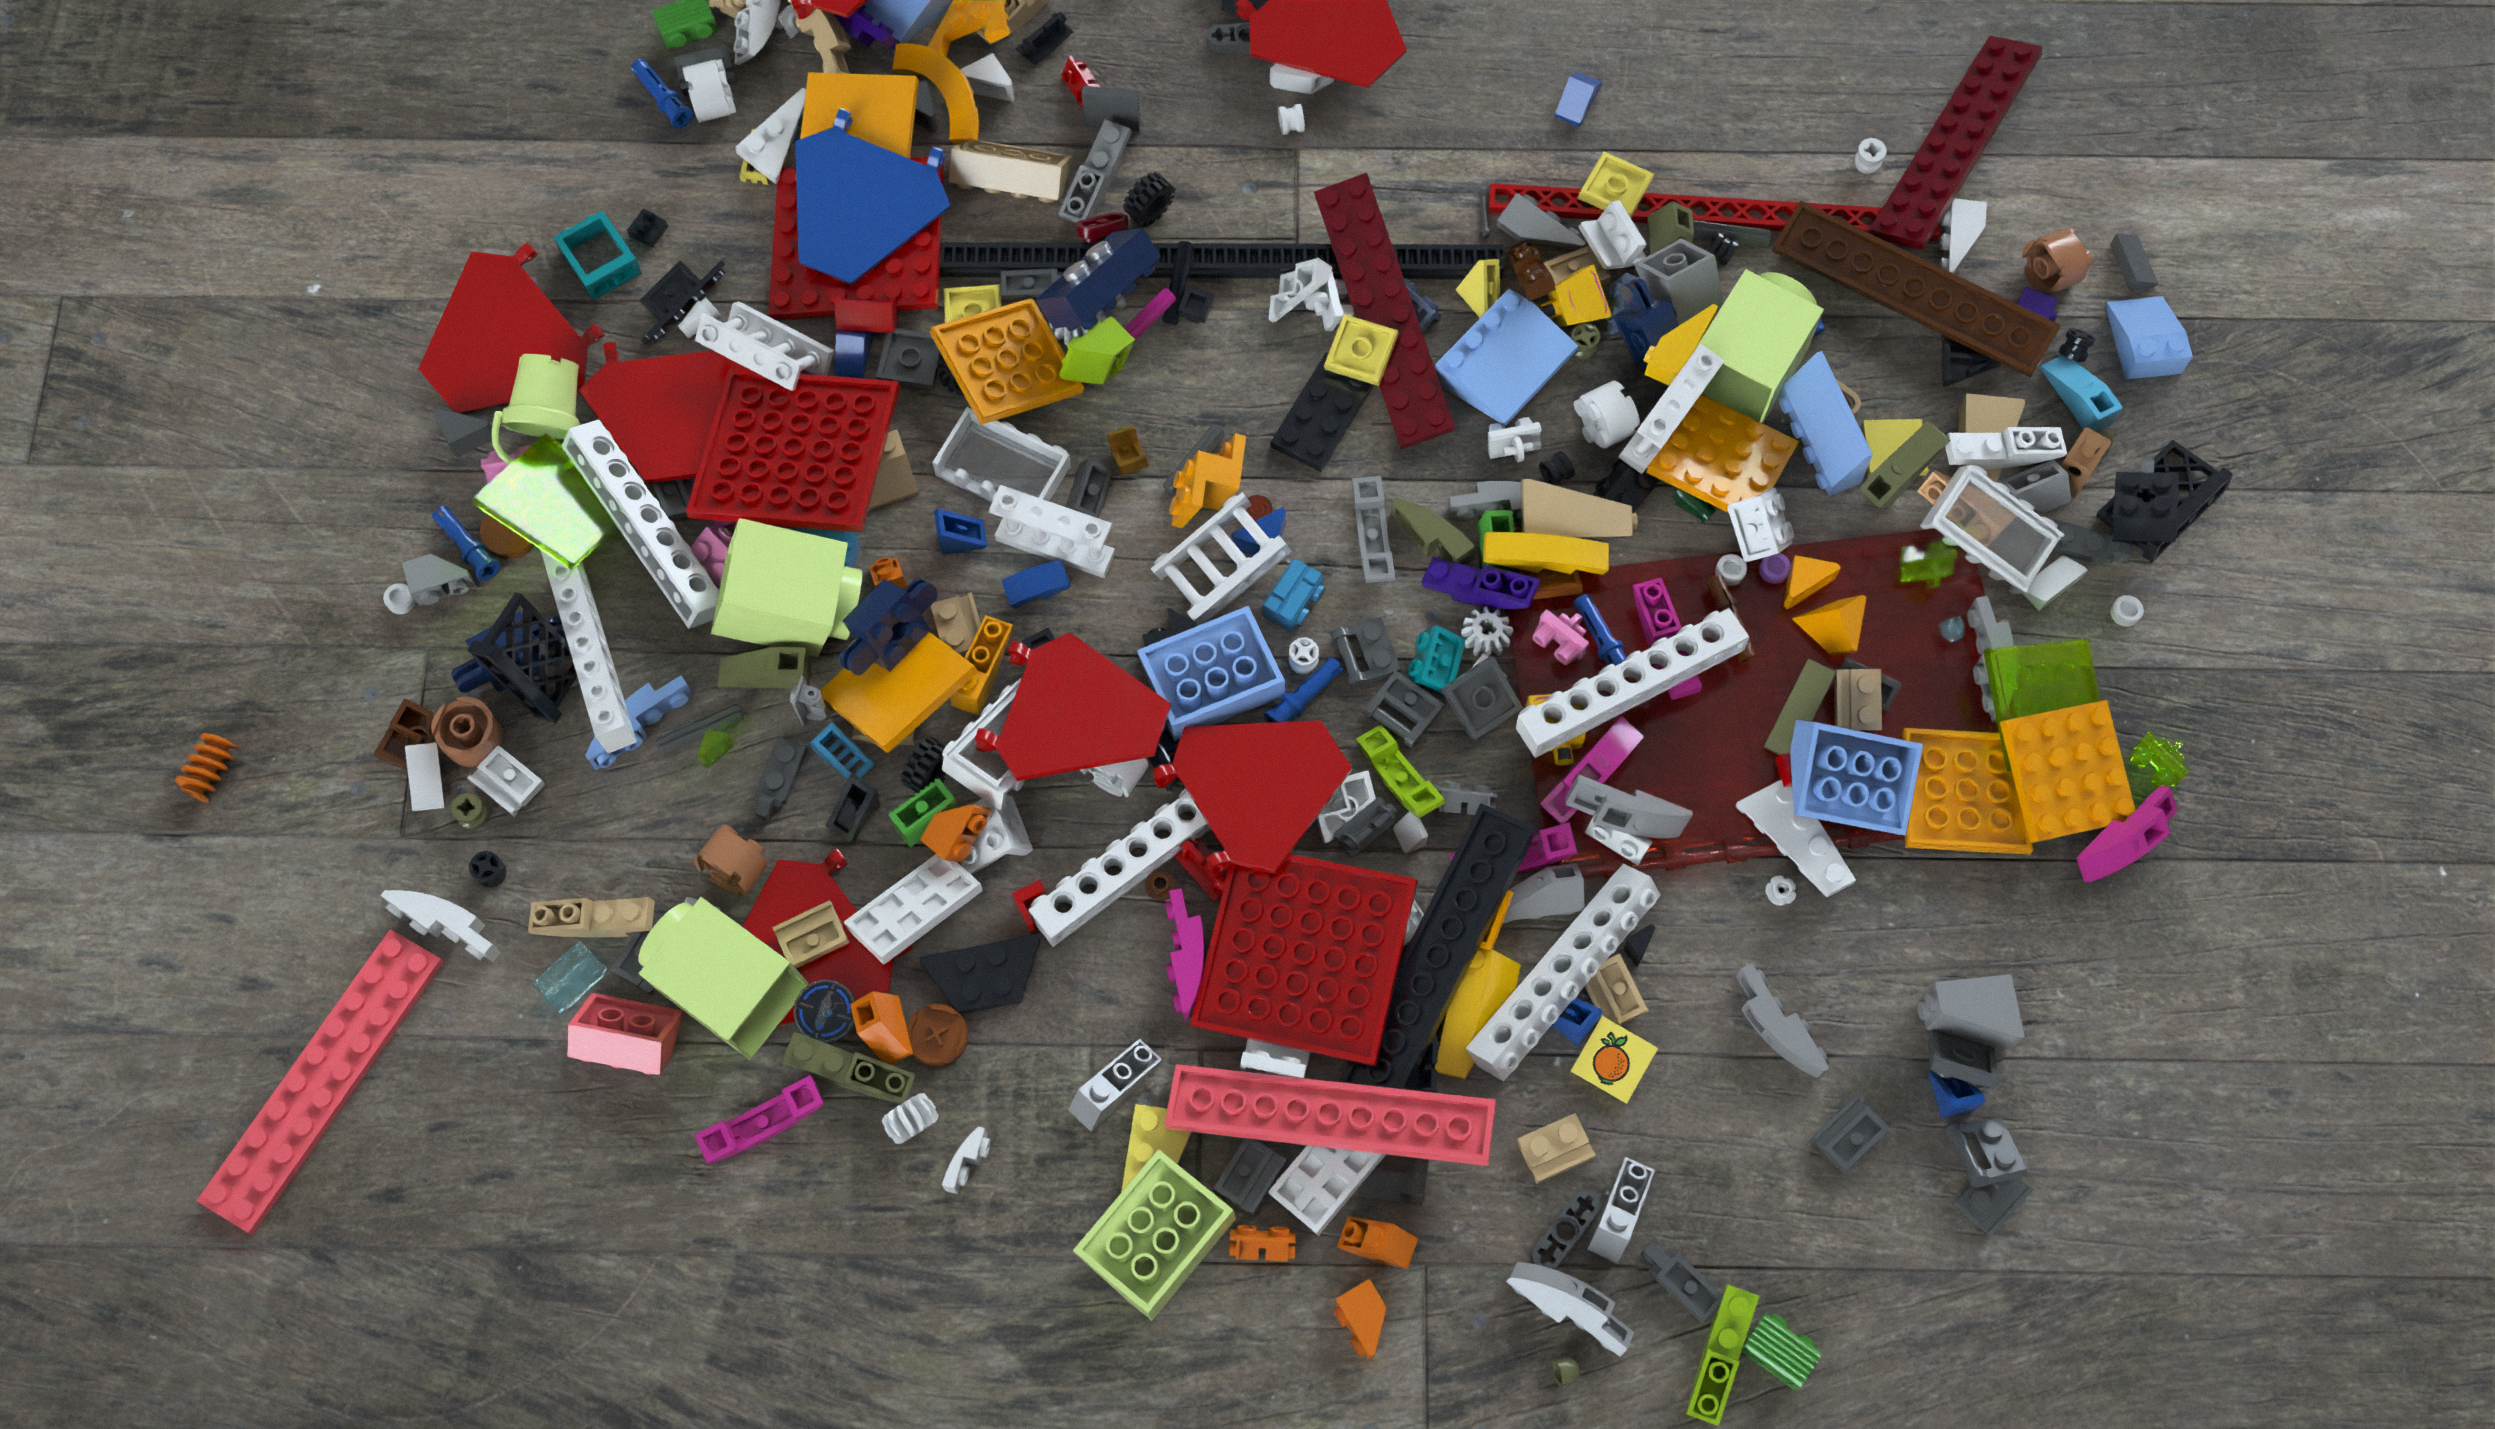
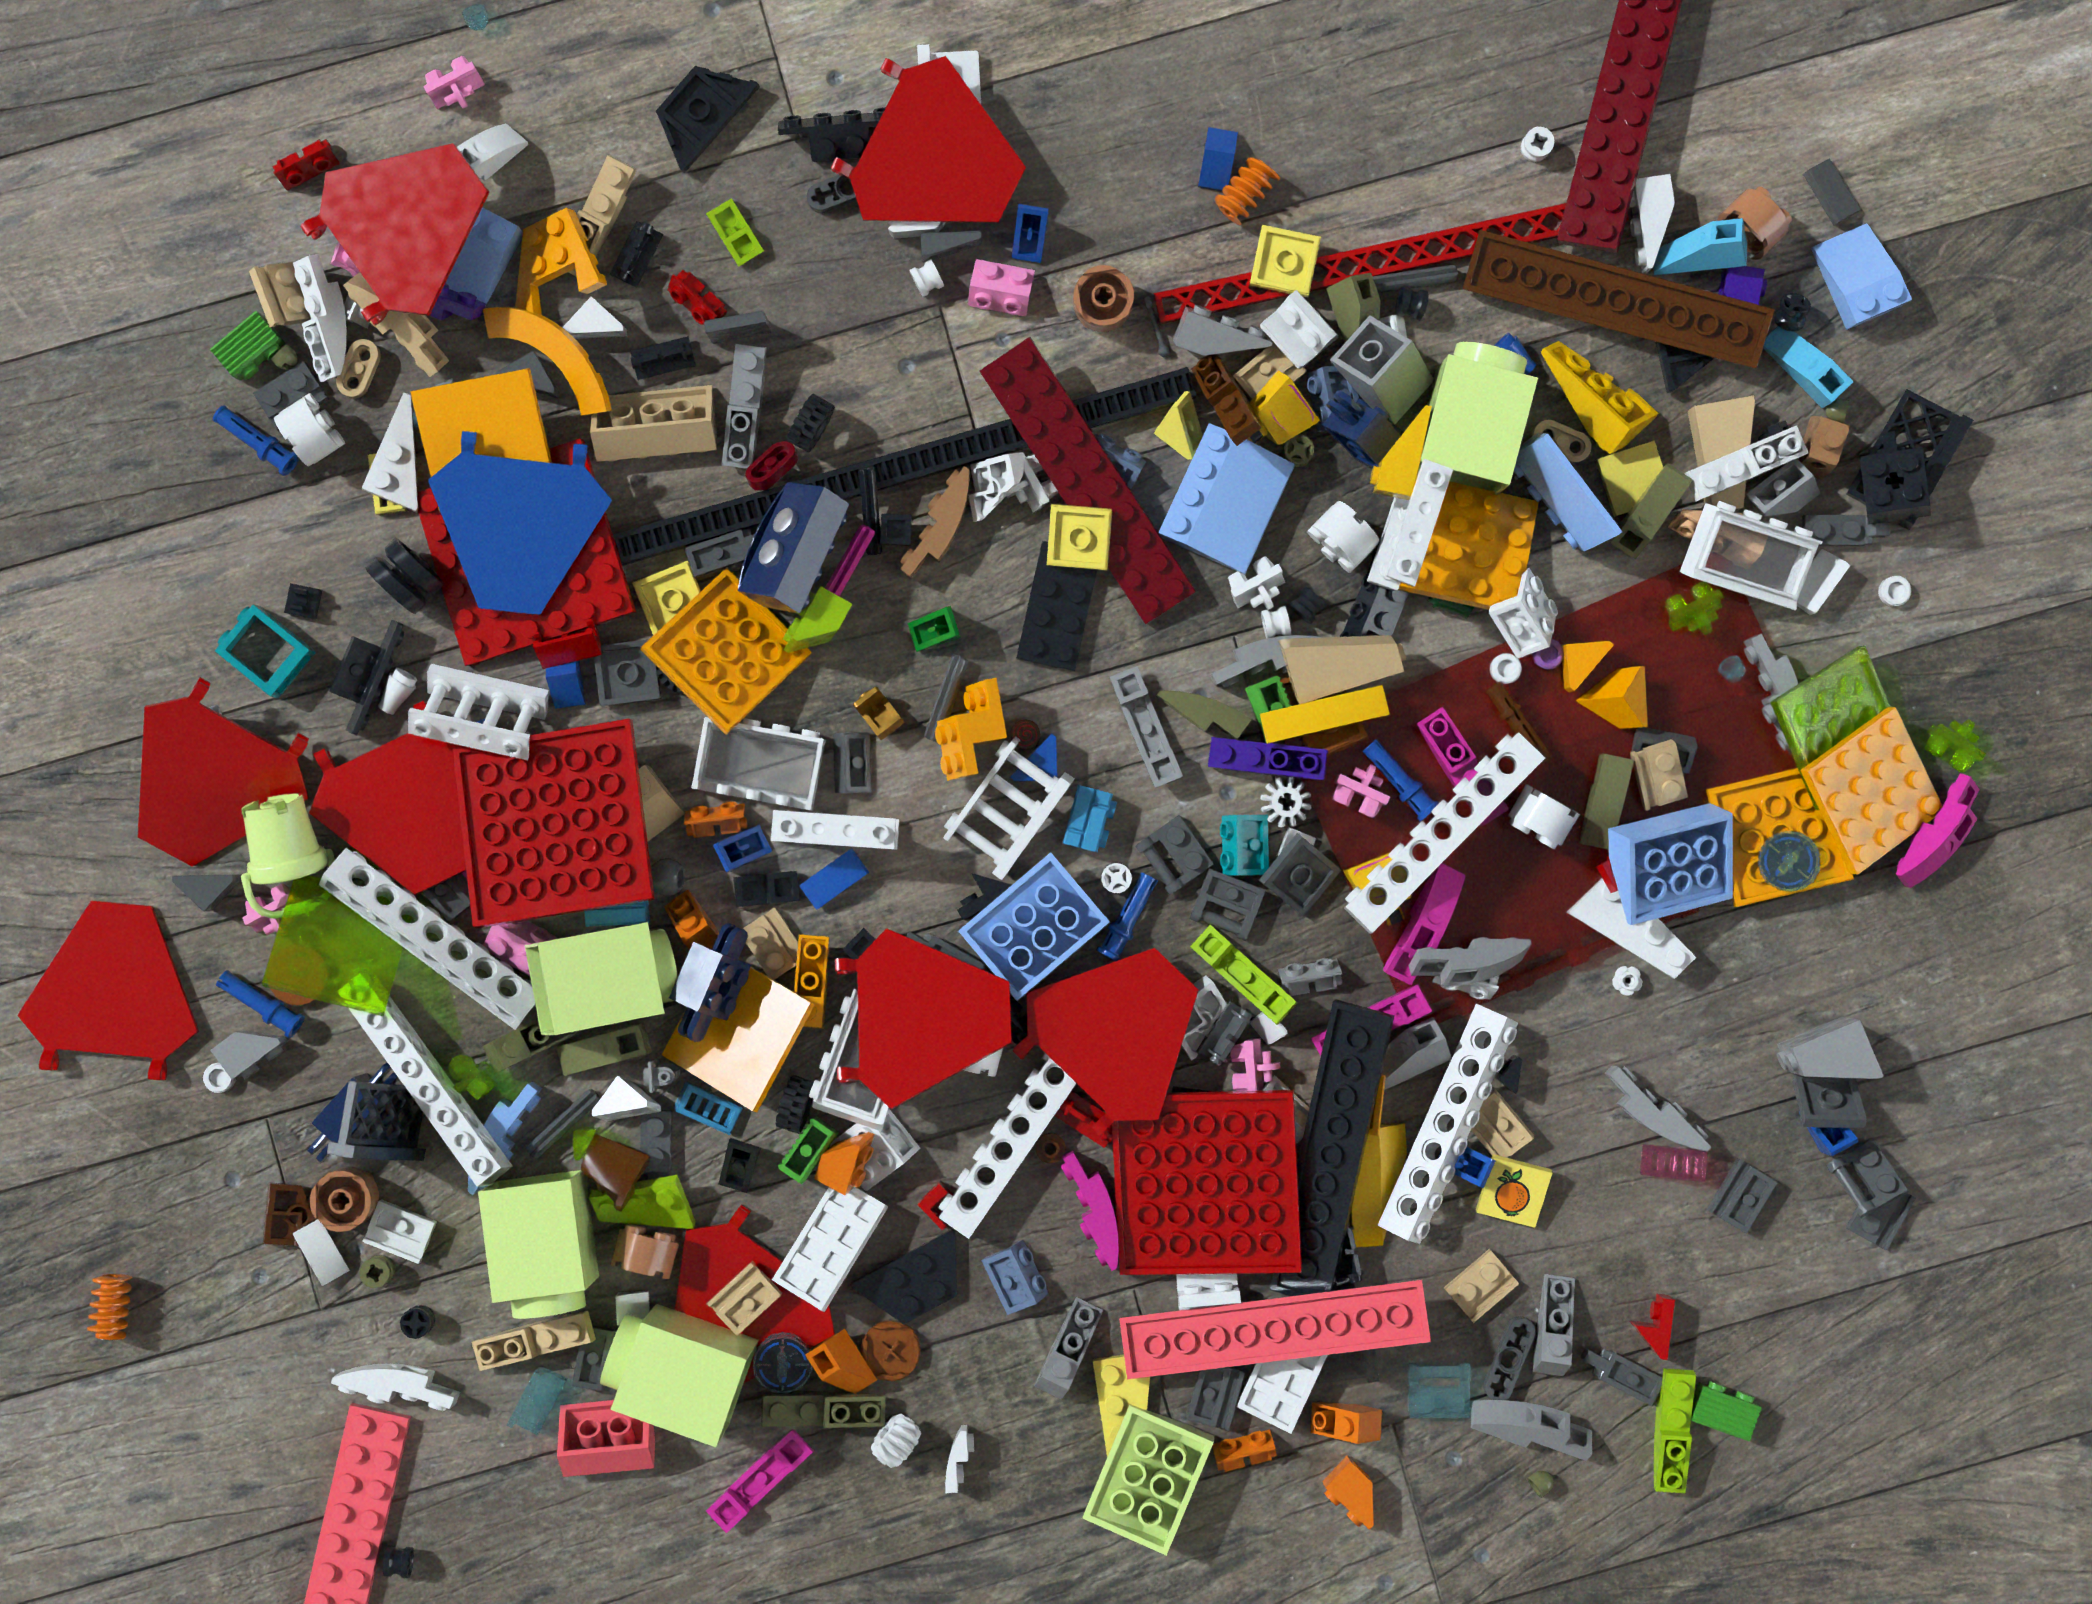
camera: 20 degrees left, 20 degrees up
(335, 498) = (111, 991): none -> red flag
(371, 1094) = (398, 1561): none -> black wheel
(632, 656) = (472, 1076): none -> clear neon green hips
(634, 814) = (539, 1243): none -> yellowish green container
(693, 644) = (521, 1045): none -> olive slope
(712, 37) = (285, 358): none -> olive hinge
(732, 774) = (614, 1168): none -> reddish brown slope
(748, 220) = (402, 579): none -> black wheel
(753, 818) = (653, 1204): none -> lime wing
(763, 722) = (623, 1101): none -> white slope
(769, 62) = (357, 369): none -> tan plate
(881, 536) = (667, 876): none -> dark grey piece
(932, 499) = (728, 816): none -> orange hinge
(969, 577) = (766, 888): none -> black slope
(1037, 123) = (662, 358): none -> black hinge
(1084, 997) = (1015, 1277): none -> sand blue bracket
(1135, 44) = (734, 232): none -> lime slope
(1204, 397) = (934, 629): none -> green slope
(1245, 309) = (948, 514): none -> medium nougat slope
(1320, 97) = (947, 243): none -> dark grey slope
(1353, 145) = (1000, 287): none -> bright pink bracket
(1387, 855) = (1253, 1056): none -> bright pink hips
(1395, 105) = (1030, 233): none -> blue slope
(1443, 171) = (1107, 281): none -> nougat brick
(1480, 1252) = (1439, 1400): none -> clear light blue plate
(1522, 471) = (1276, 622): none -> white wheel
(1597, 121) = (1245, 188): none -> orange piece
(1727, 1248) = (1658, 1333): none -> red slope
(1733, 701) = (1543, 816): none -> white brick
(1805, 1100) = (1699, 1167): none -> clear pink slope
(1879, 383) = (1604, 409): none -> yellow wedge
(1970, 813) = (1789, 861): none -> clear light blue tile
(2015, 264) = (1706, 248): none -> medium azure slope

